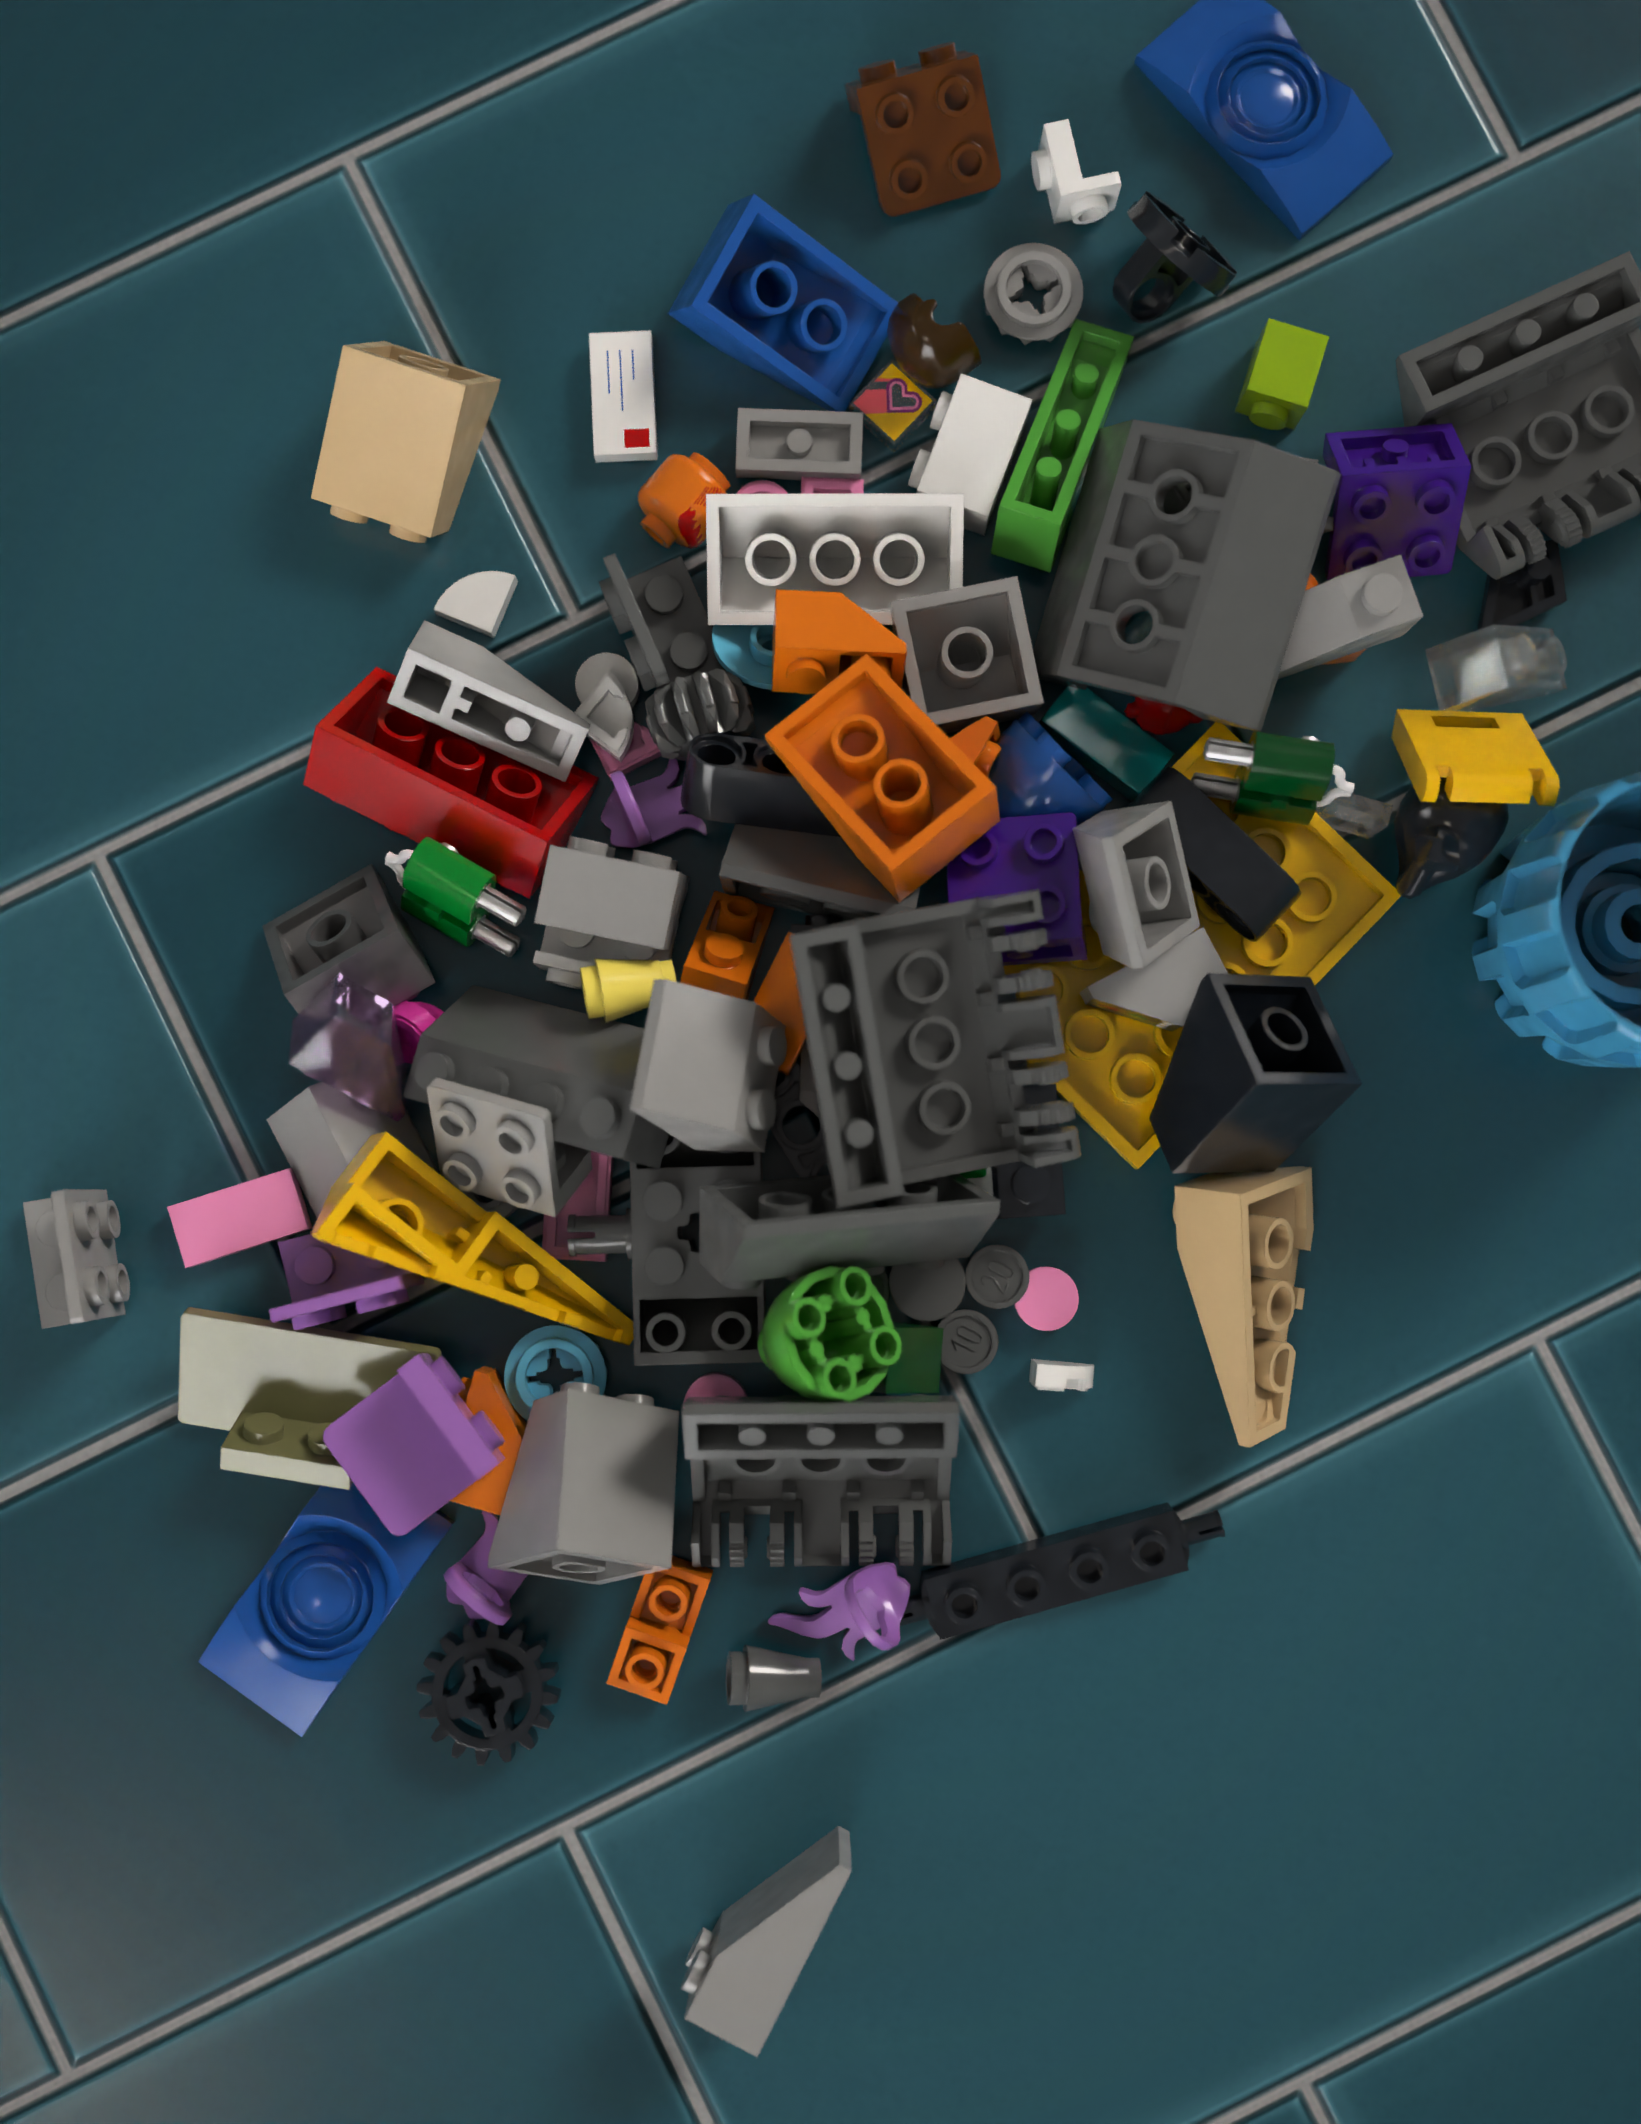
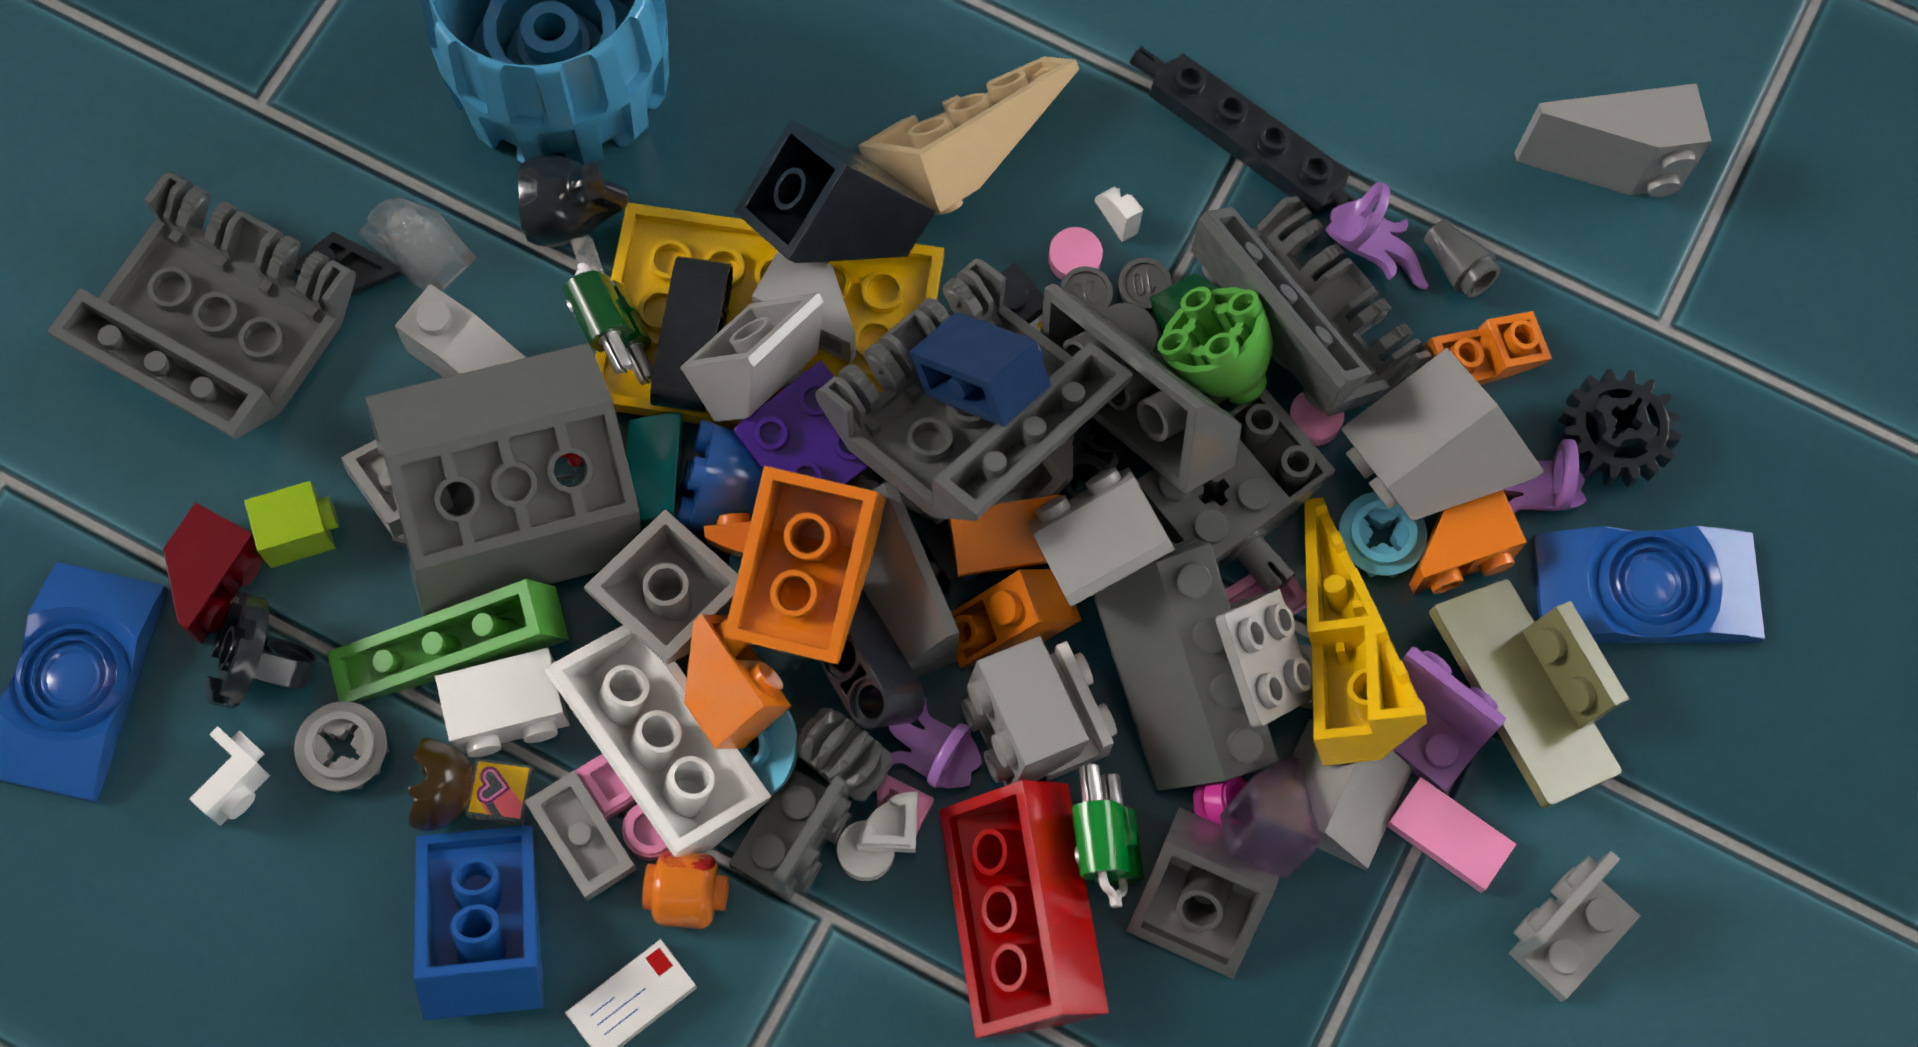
camera: 130 degrees left, 15 degrees down
(414, 1443) = (1504, 571): medium lavender bracket -> none
(478, 601) = (870, 994): white tile -> none
(486, 702) = (946, 922): light grey slope -> none
(621, 985) = (1083, 654): light yellow cone -> none
(926, 128) = (255, 917): reddish brown bracket -> none
(947, 1063) = (980, 368): none -> dark blue brick
(1288, 270) = (207, 567): none -> dark red slope
(1396, 497) = (323, 381): dark purple bracket -> none
(1480, 754) = (495, 209): yellow container -> none

